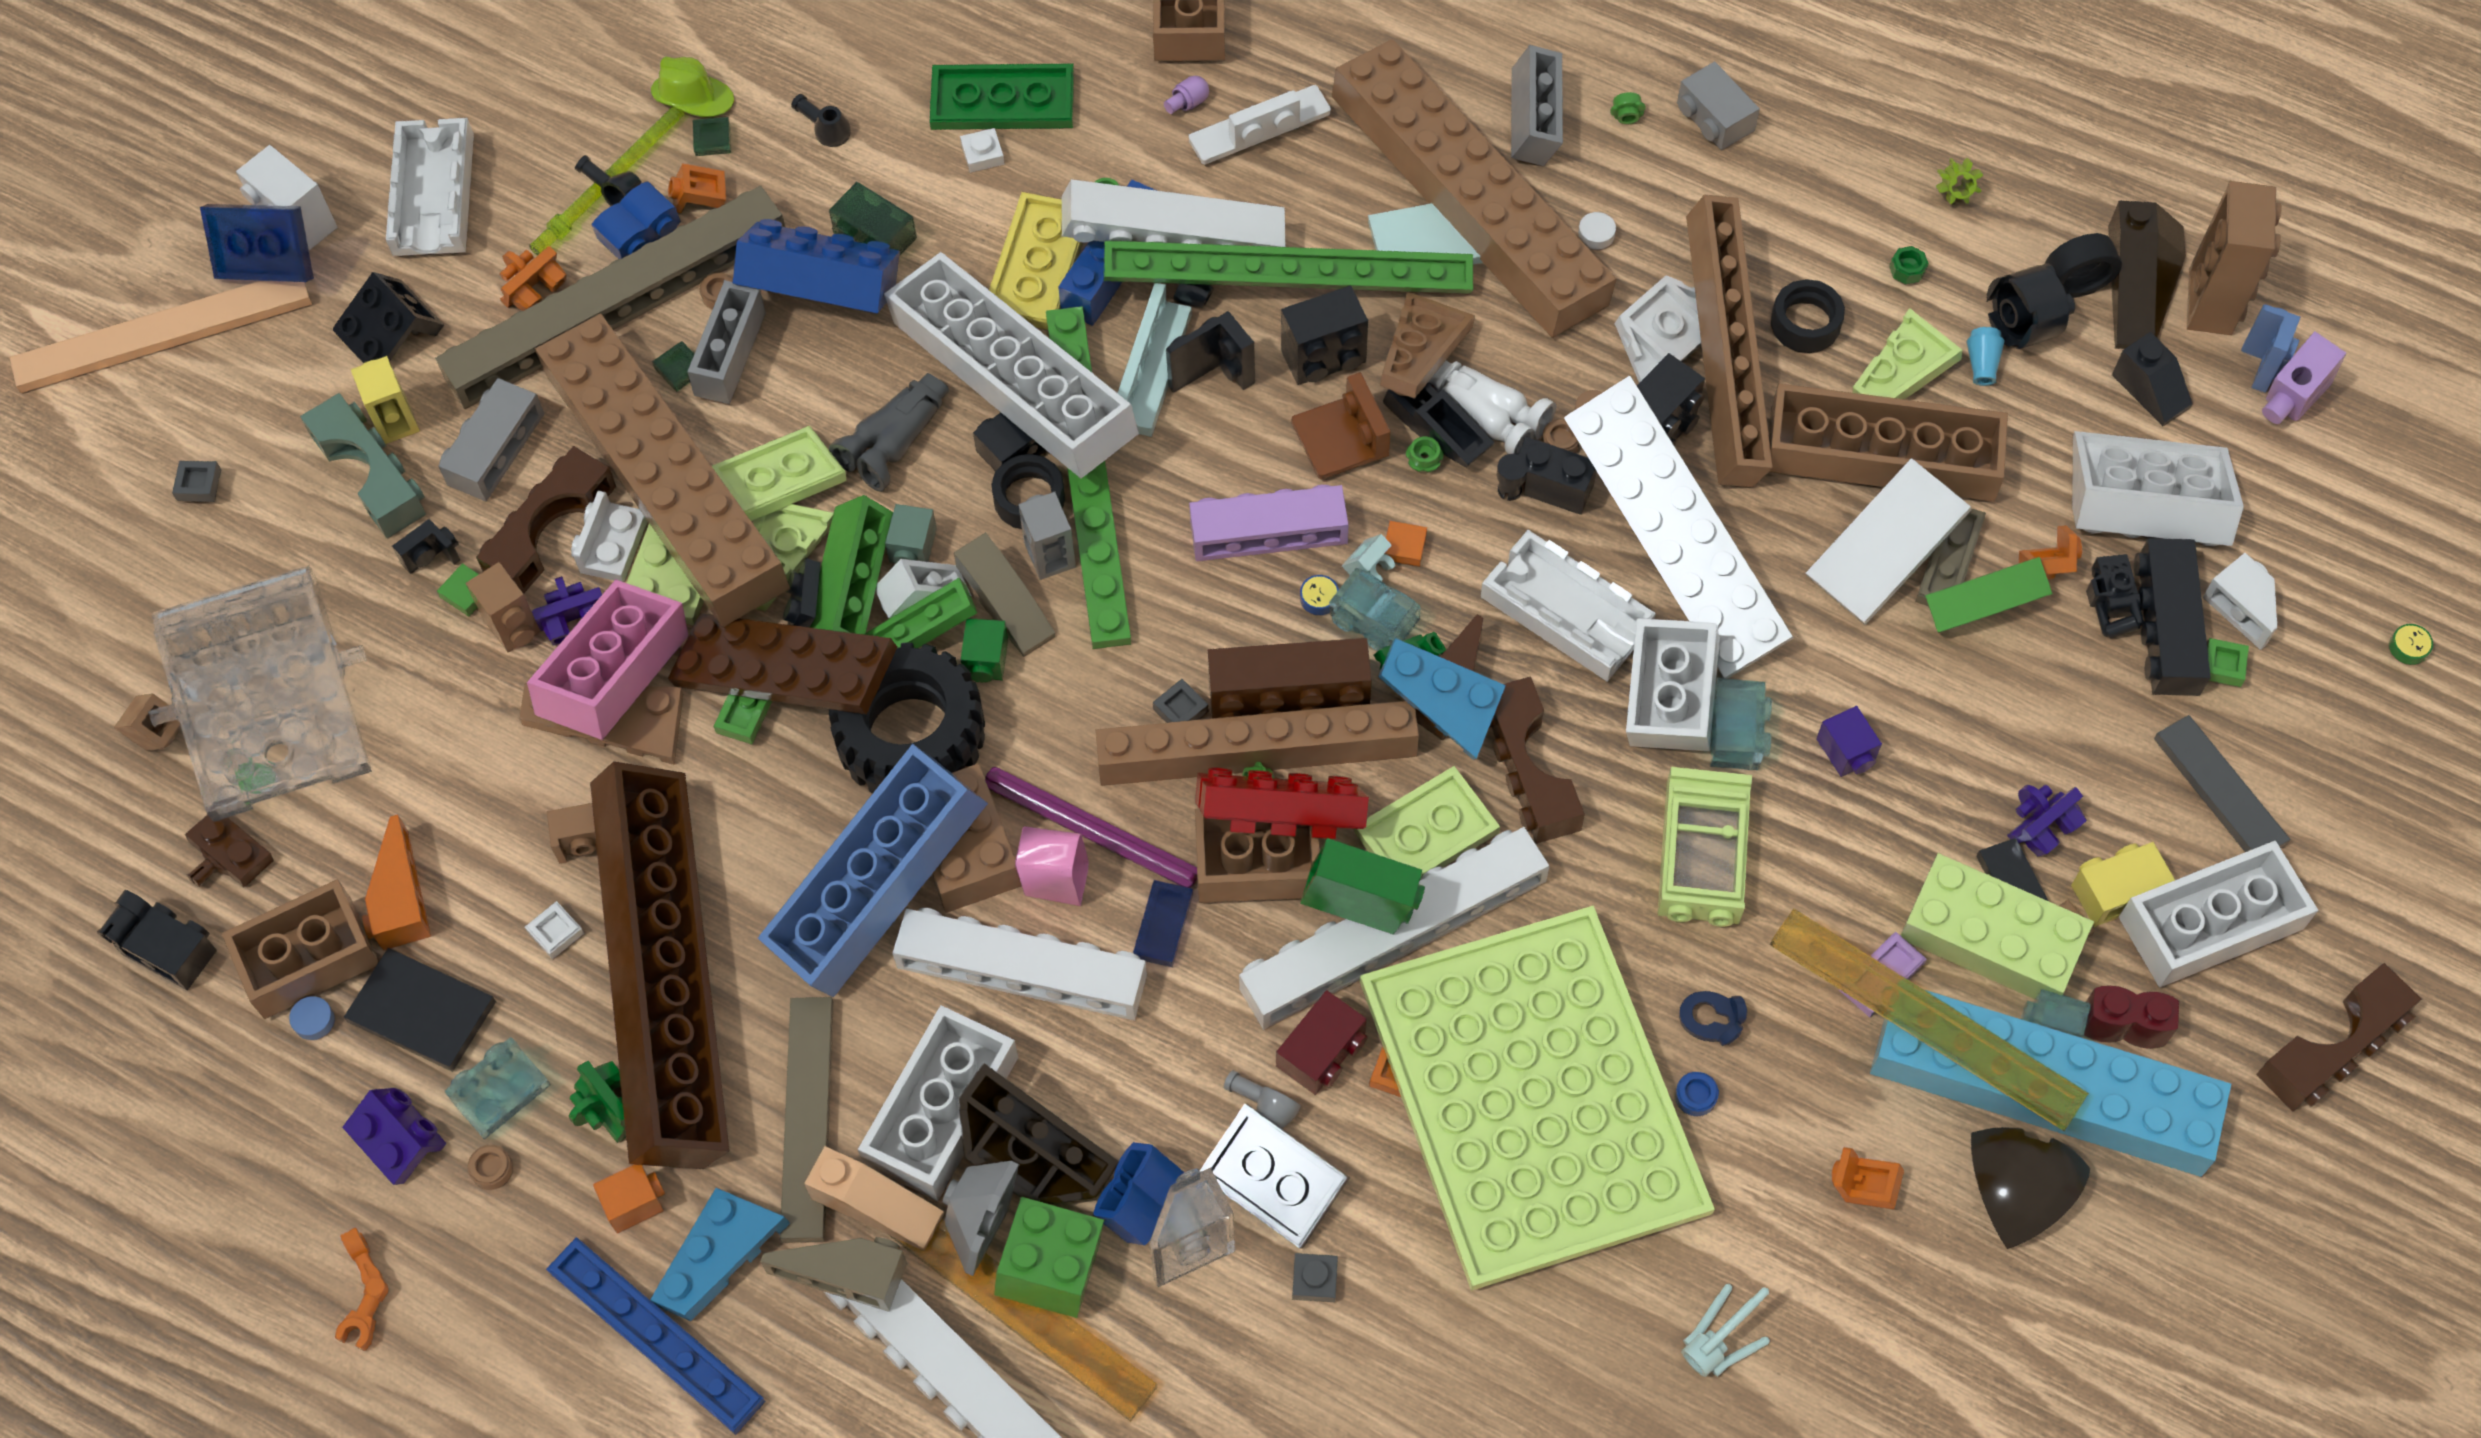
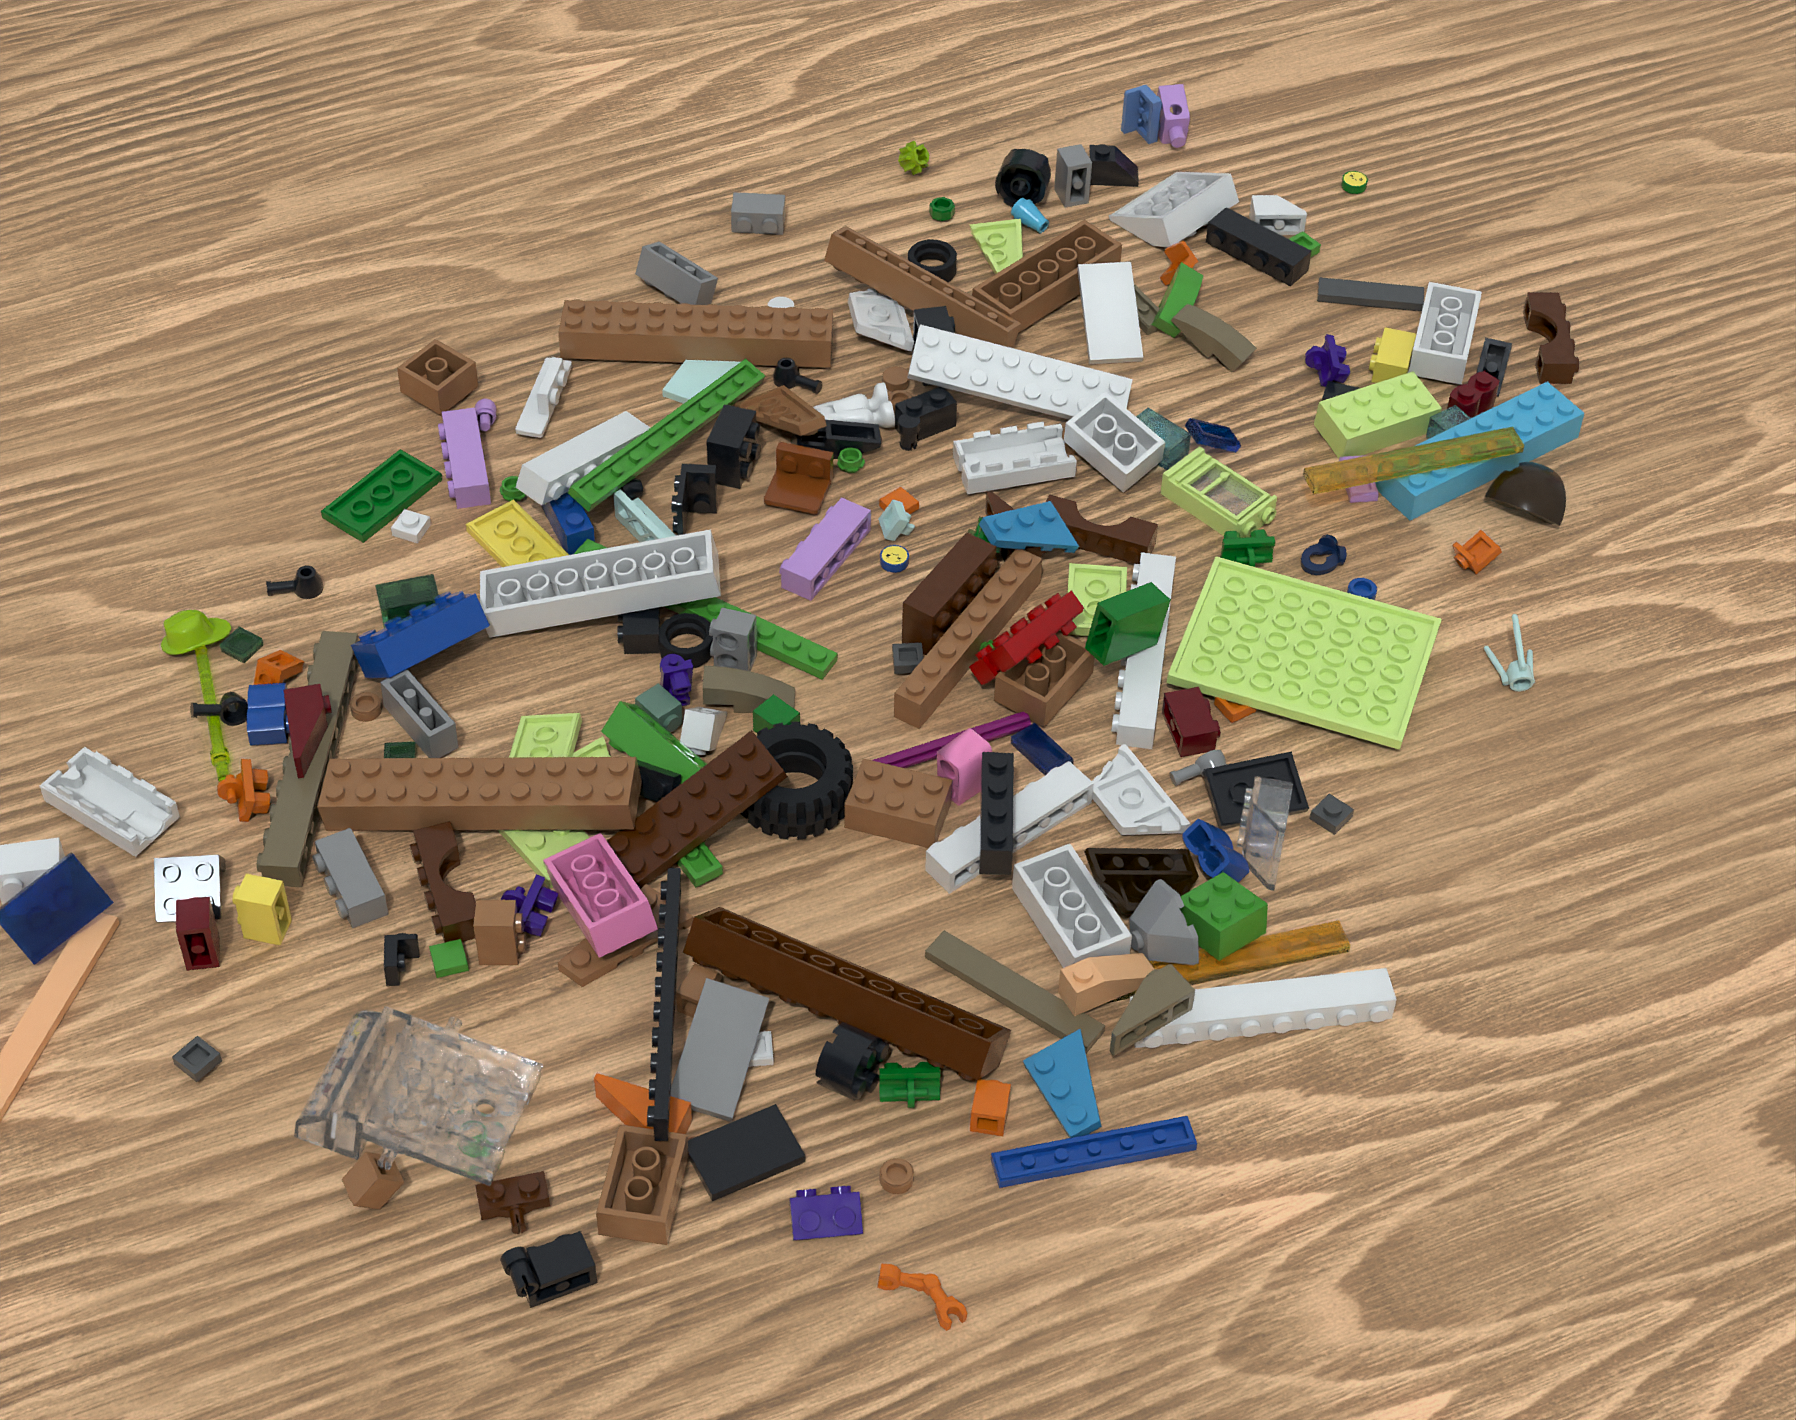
camera: 55 degrees left, 15 degrees down
(312, 1018) = (692, 1216): medium blue tile -> none
(318, 368) = (197, 933): none -> dark red brick
(386, 494) = (254, 953): sand green arch -> none
(496, 1087) = (849, 1136): clear light blue bracket -> none
(508, 817) = (665, 1009): none -> black plate
(509, 898) = (719, 1049): none -> light grey tile
(574, 1027) = (851, 1061): none -> black brick
(608, 539) = (494, 861): white bracket -> none
(616, 263) = (307, 722): none -> dark red slope
(872, 871) = (893, 842): medium blue brick -> none
(889, 431) = (571, 675): dark grey piece -> none
(929, 616) = (732, 722): bright green plate -> none
(953, 524) = (677, 677): none -> dark purple hips
(992, 940) = (996, 813): none -> black brick
(1107, 123) = (465, 457): none -> lavender brick
(1164, 1058) = (1135, 799): none -> white wing
(1373, 610) = (930, 537): clear light blue brick -> none
(1502, 315) = (788, 374): none -> black bar
(1627, 108) = (716, 248): bright green plate -> none
(1641, 936) = (1249, 550): none -> green hips
(1792, 776) = (1212, 435): none -> clear blue tile
(1849, 742) = (1212, 403): dark purple brick -> none
(1959, 670) = (1213, 336): none -> dark tan slope
(2083, 350) = (1073, 175): none -> light grey brick
(2085, 263) = (1020, 136): black tyre -> none
(2115, 595) = (1223, 260): black piece -> none
(2151, 258) = (1031, 128): dark brown wedge -> none
(2221, 1002) = (1495, 359): none -> black slope
(2233, 257) = (1086, 84): medium nougat brick -> none

